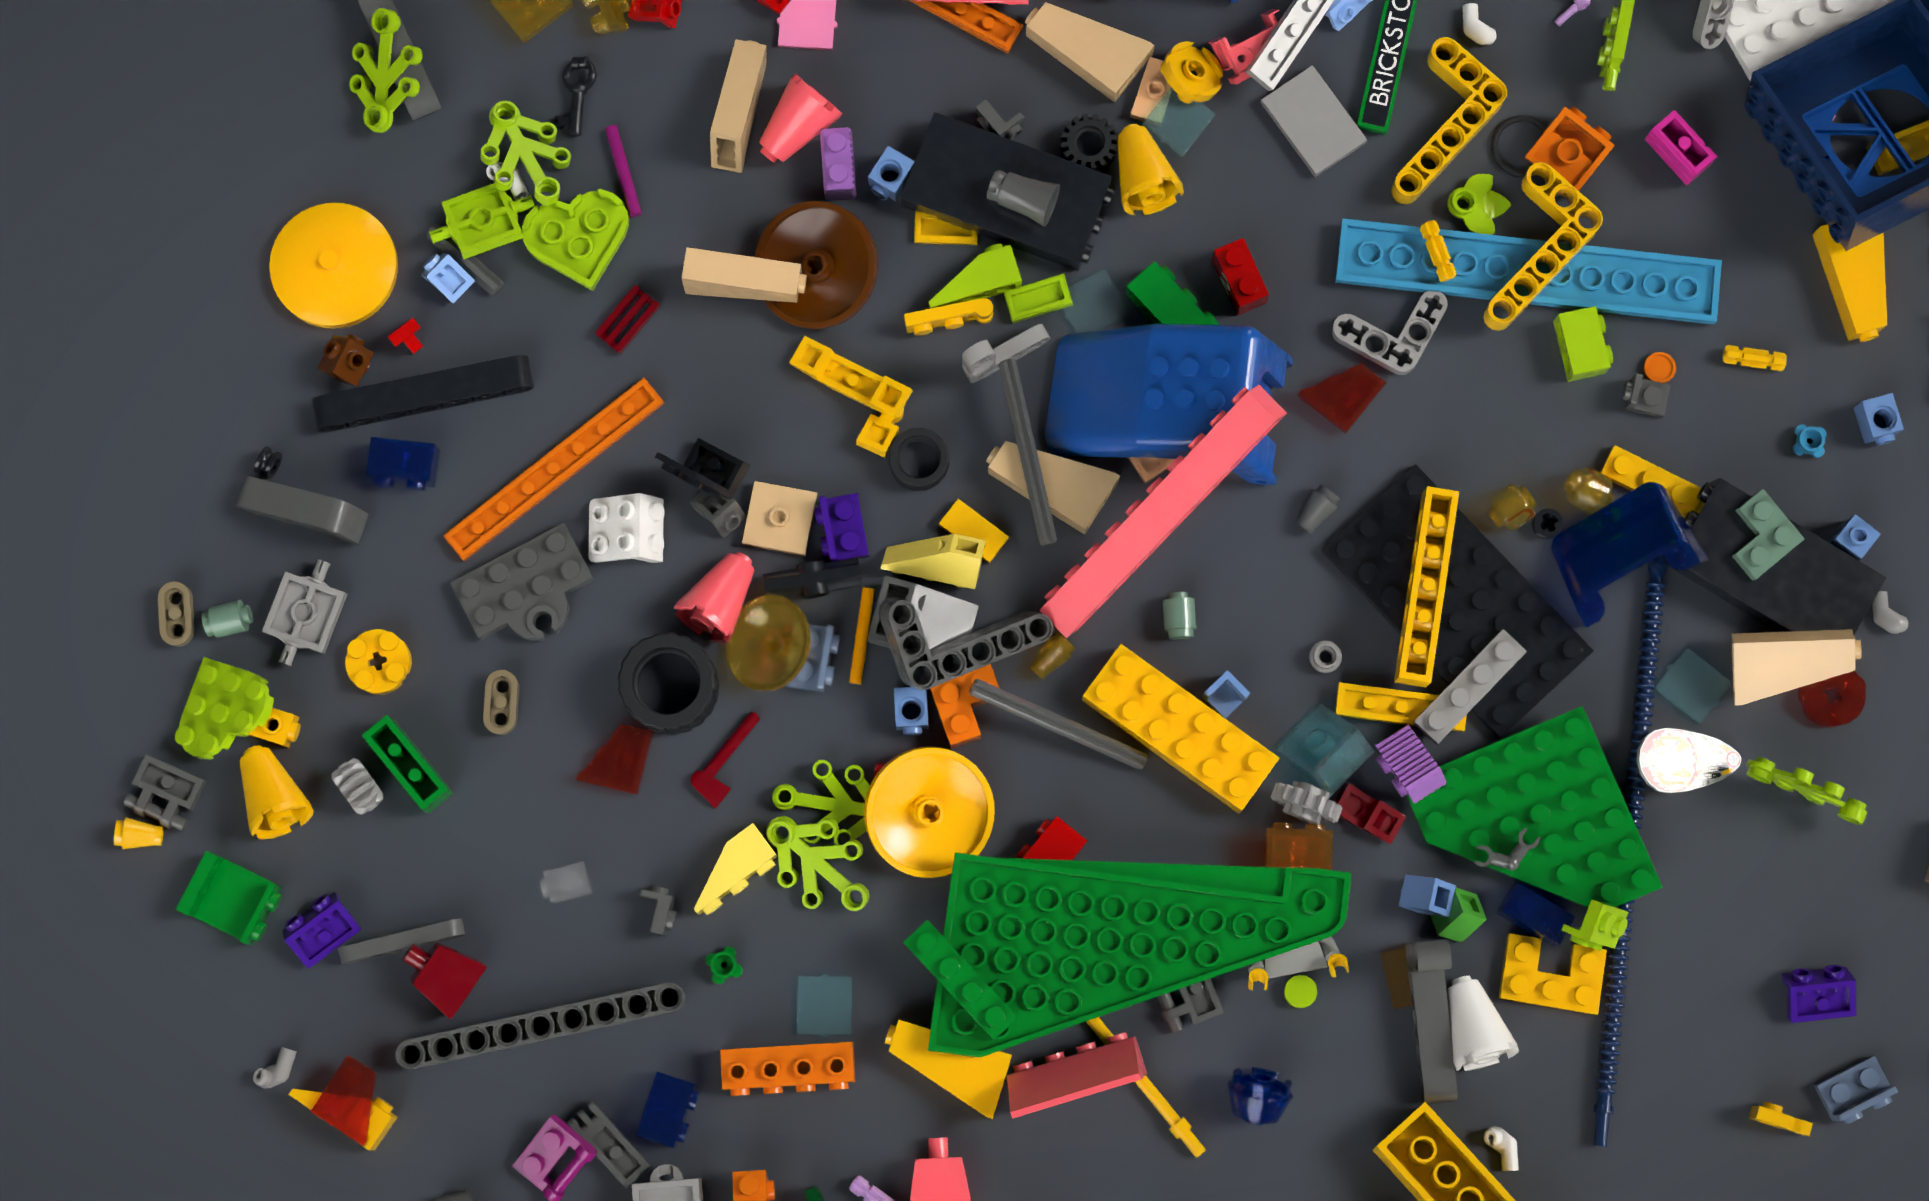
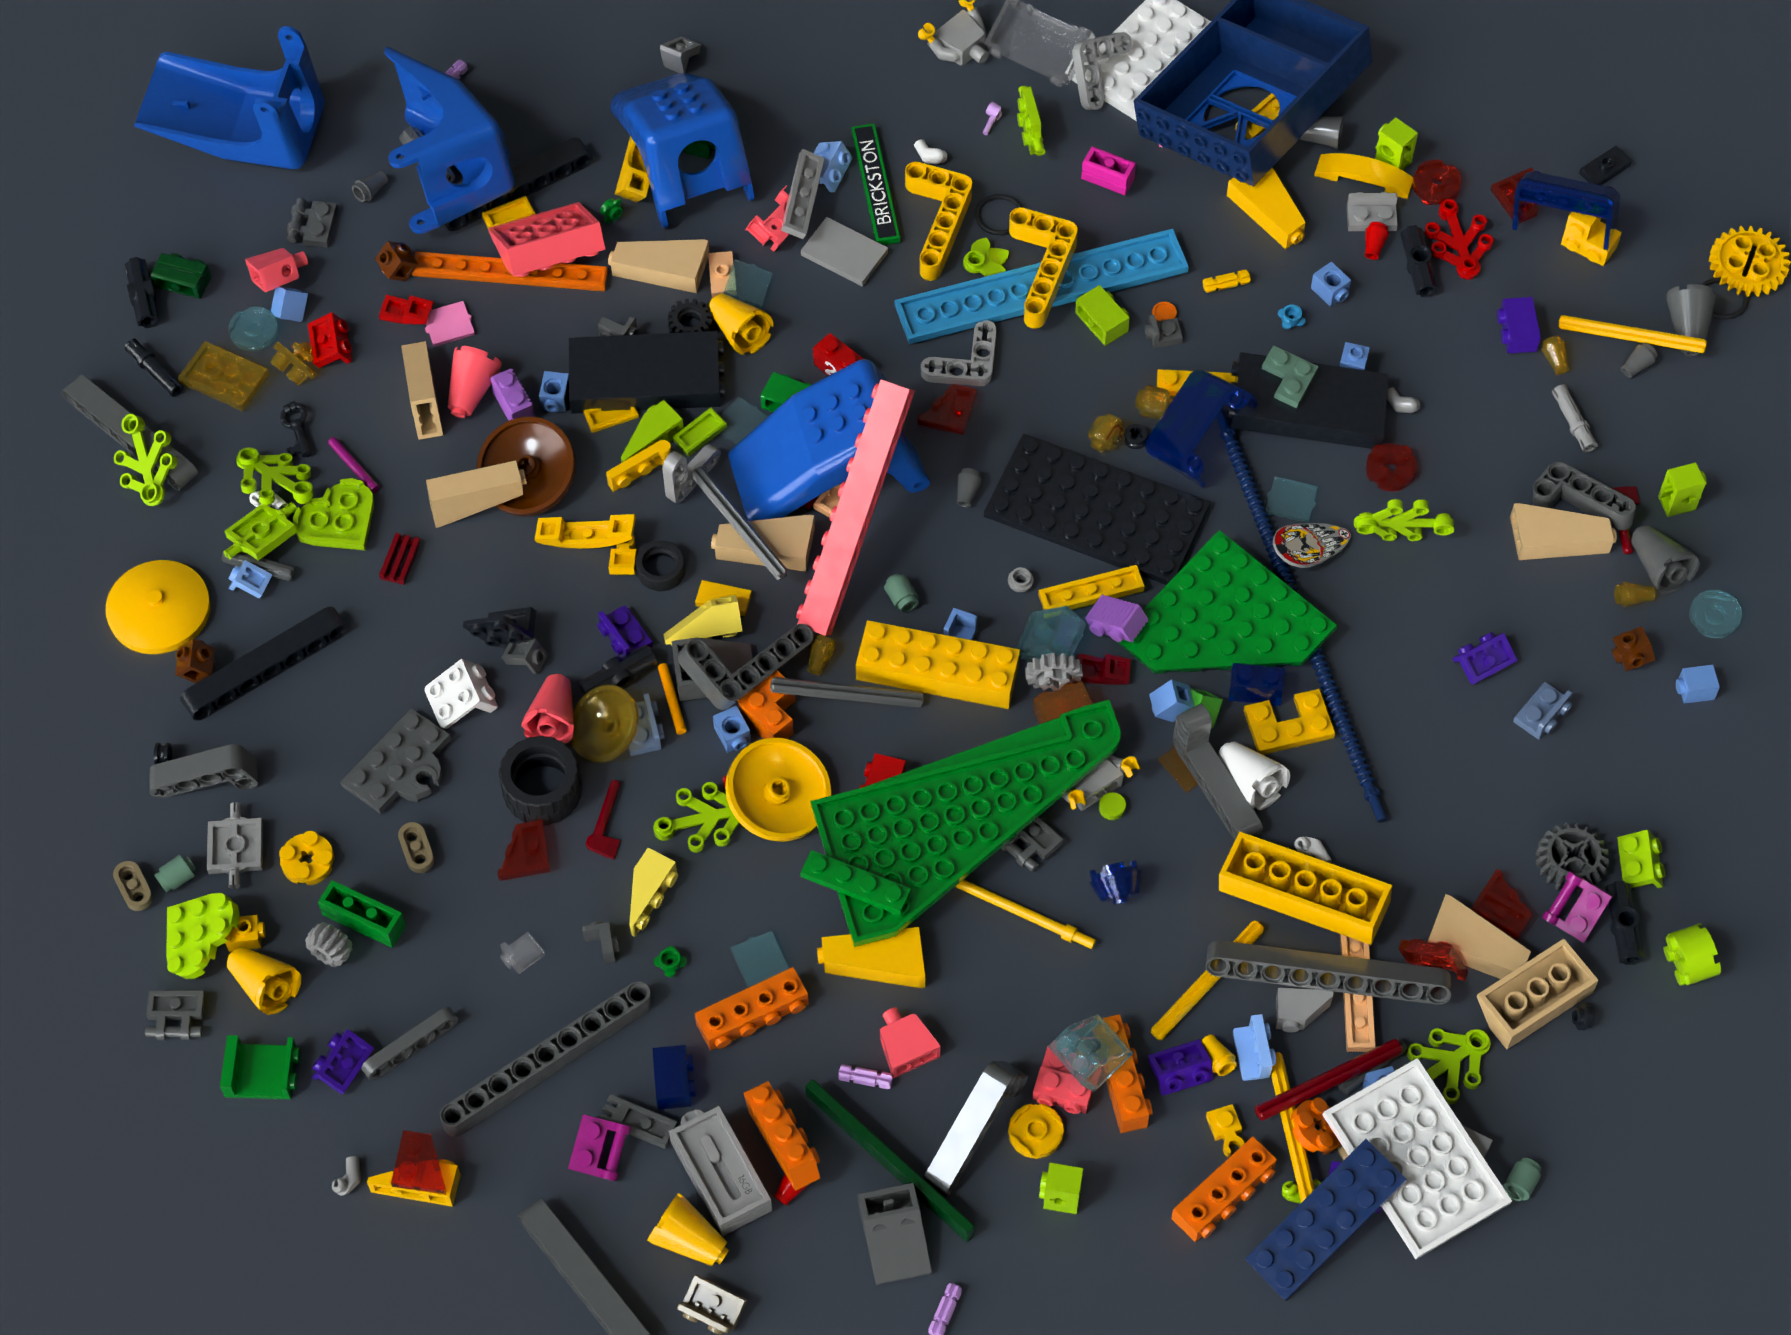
camera: 25 degrees left, 20 degrees down
(136, 834) = (164, 1052): yellow cone -> none
(402, 463) = (268, 714): clear blue brick -> none
(406, 335) = (236, 629): red tile -> none
(444, 975) = (454, 1051): dark red torso -> none
(553, 469) = (386, 679): orange tile -> none
(779, 518) = (574, 645): tan plate -> none
(814, 860) = (705, 857): lime plant -> none
(1024, 195) = (659, 360): dark grey plant -> none
(1074, 1076) = (975, 921): coral slope -> none
(1178, 68) = (744, 250): yellow plate -> none
(1426, 587) = (1070, 498): yellow brick -> none
(1438, 251) = (972, 293): yellow axle -> none
(1469, 687) = (1133, 555): light grey plate -> none
(1509, 861) = (1219, 652): dark grey arm -> none
(1571, 146) = (1033, 194): orange plate -> none
(1600, 927) = (1305, 669): lime bracket -> none
(1772, 1115) = (1497, 749): yellow plate -> none
(1788, 660) = (1346, 449): tan slope -> none

